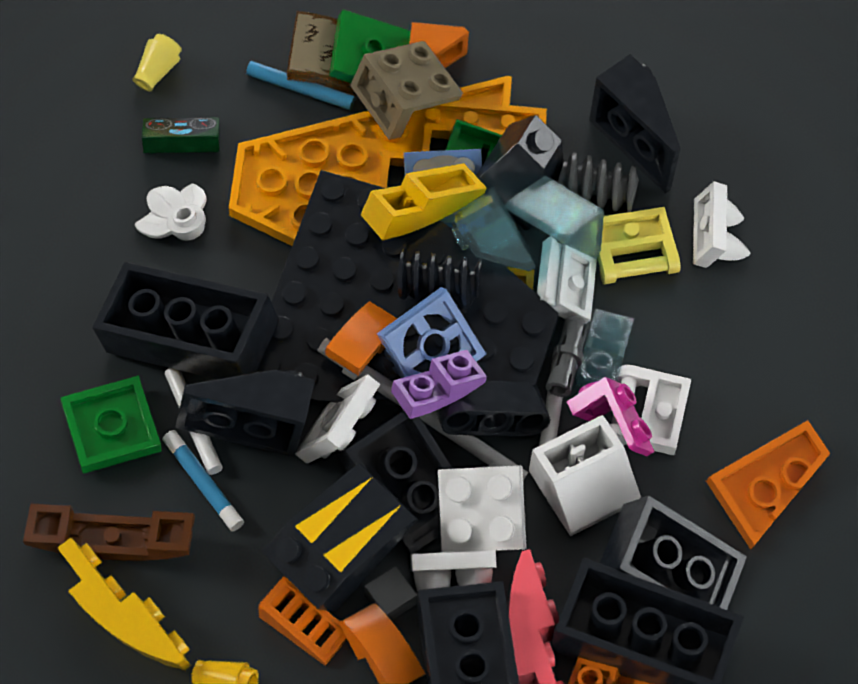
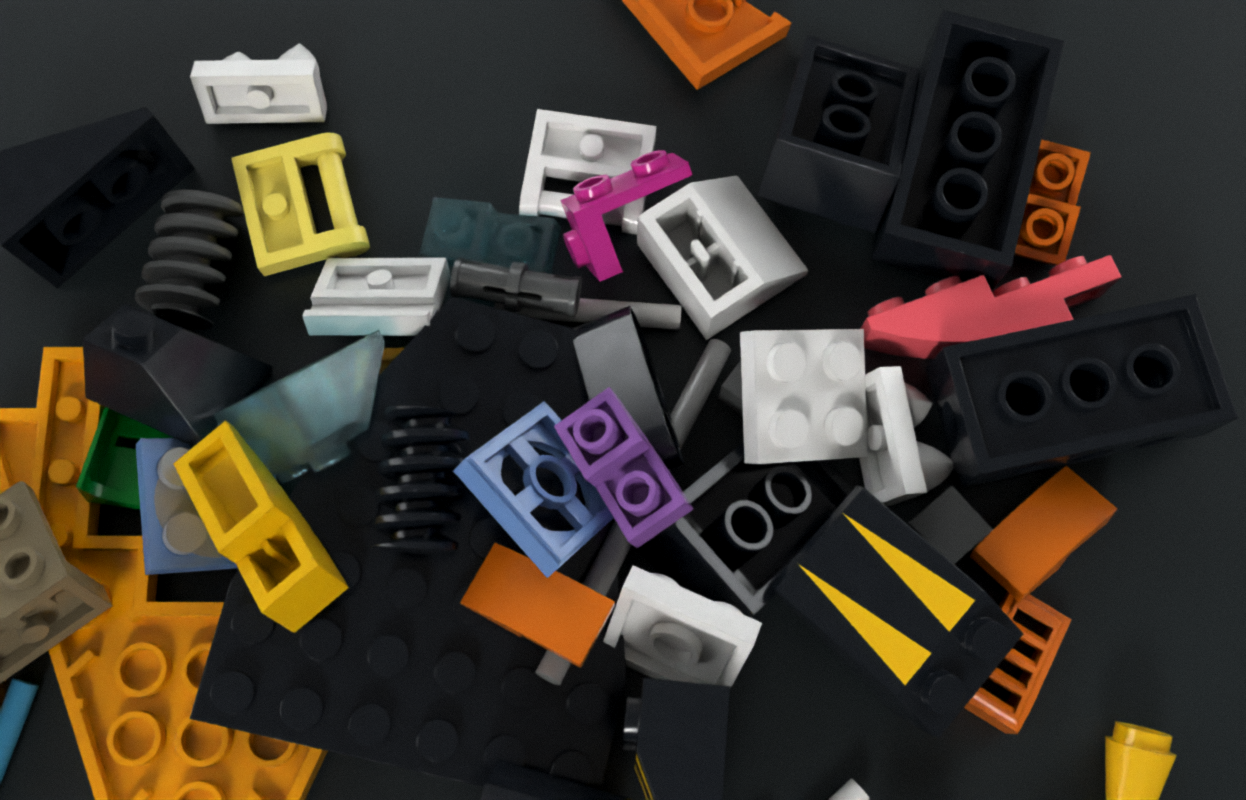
camera: 90 degrees left, 15 degrees up
(561, 215) = (270, 302): clear light blue slope -> none

